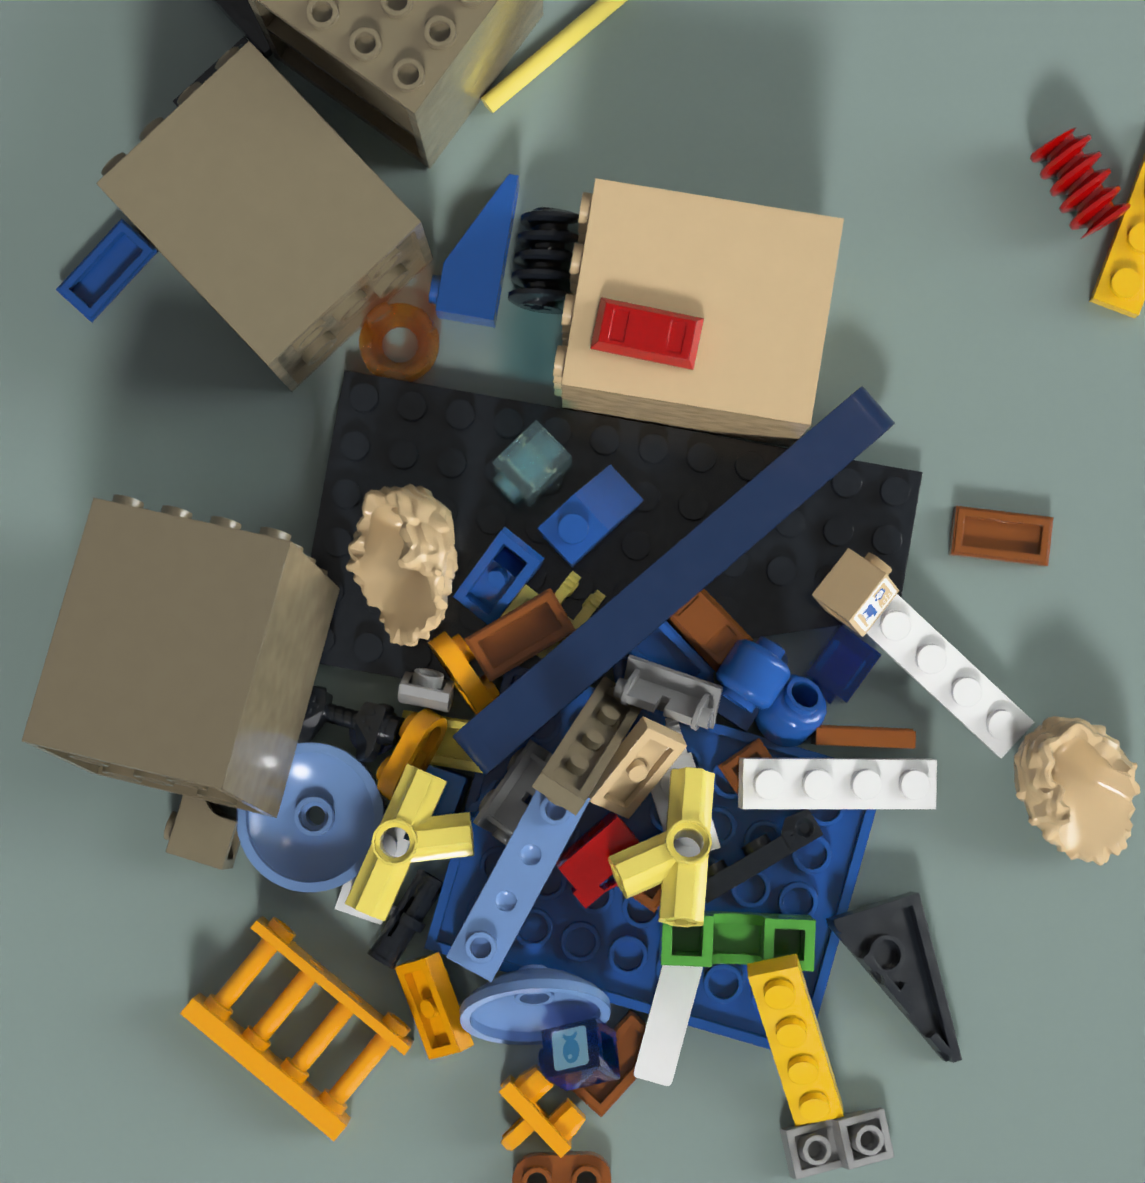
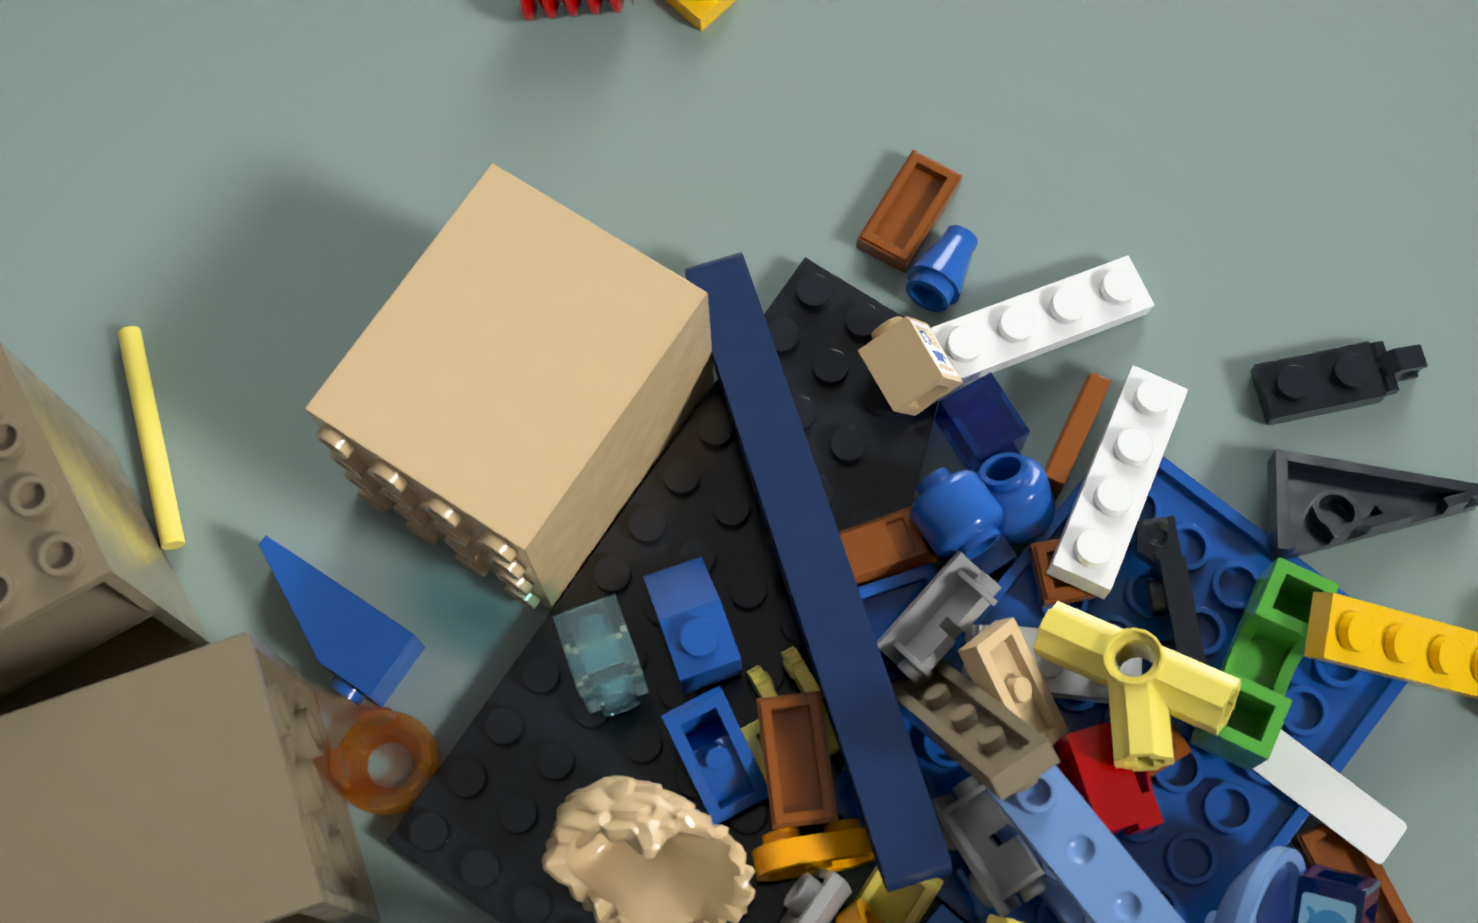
camera: 65 degrees left, 15 degrees down
(543, 259) = (374, 554): black piece -> none
(647, 333) = (513, 426): red tile -> none
(957, 582) = (941, 272): none -> blue cone
(1000, 917) = (1333, 379): none -> black hinge
(1077, 787) = (1218, 237): tan hair -> none

